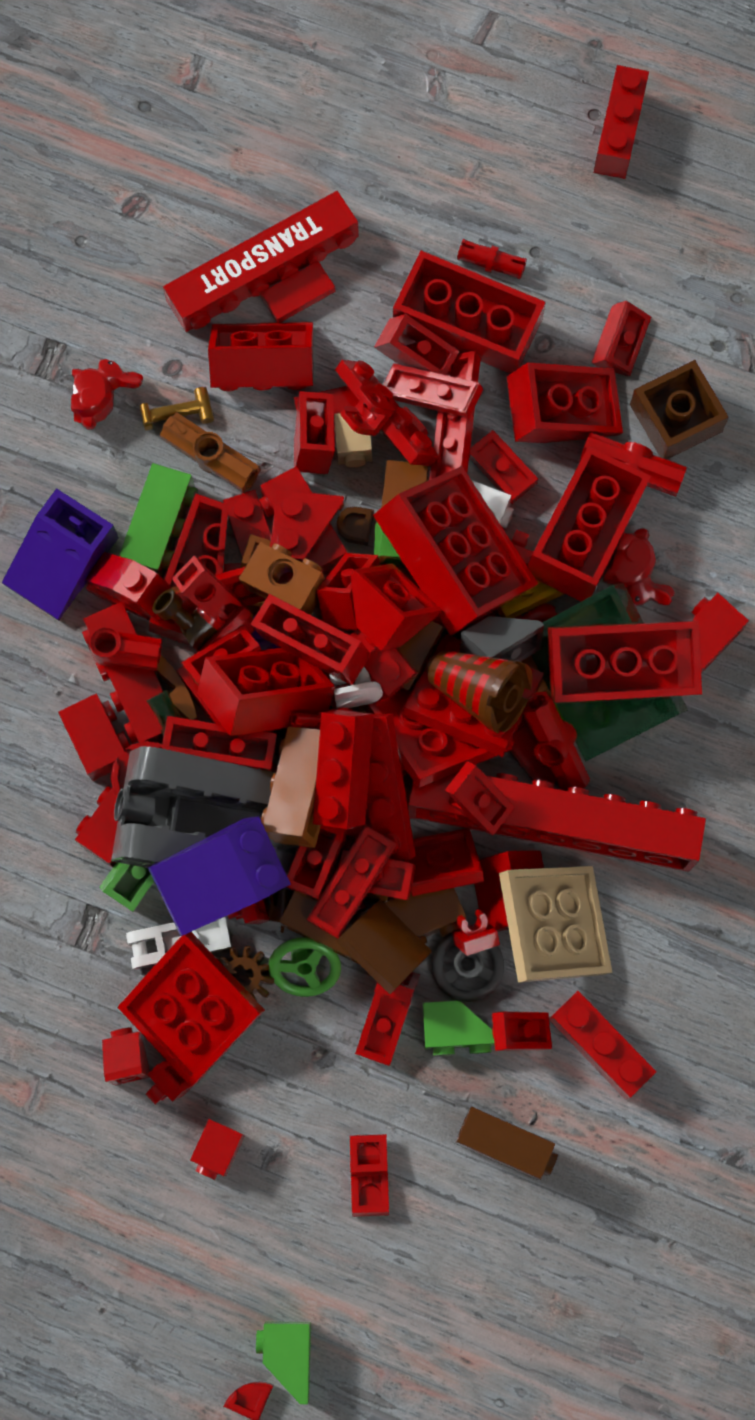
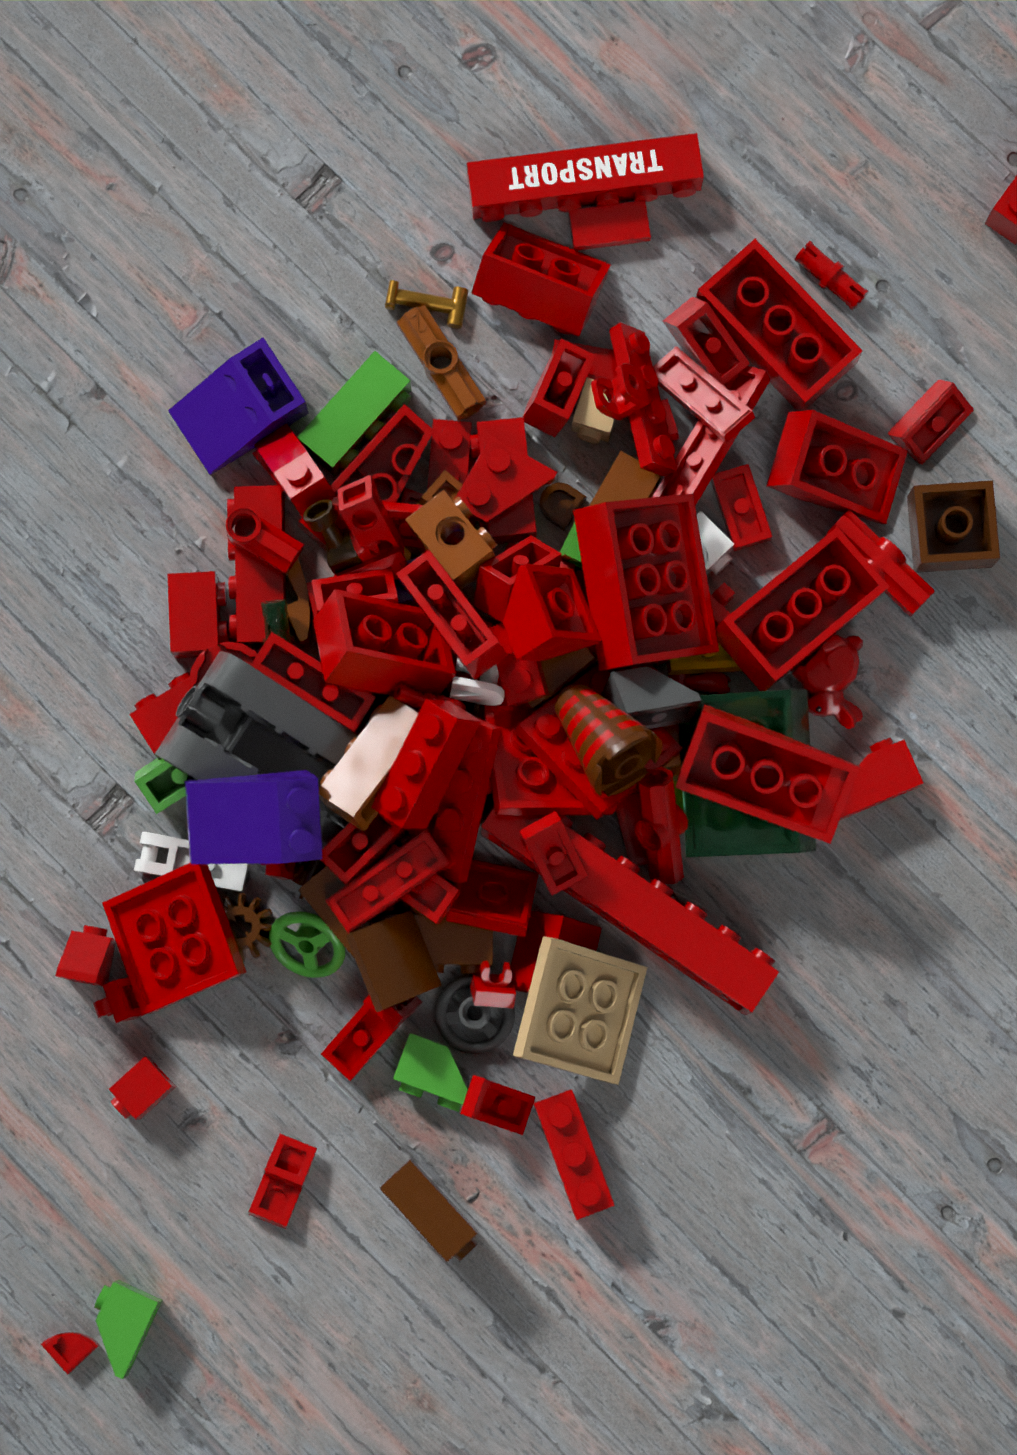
camera: 20 degrees right, 5 degrees up
(95, 389) = (349, 245): red animal -> none

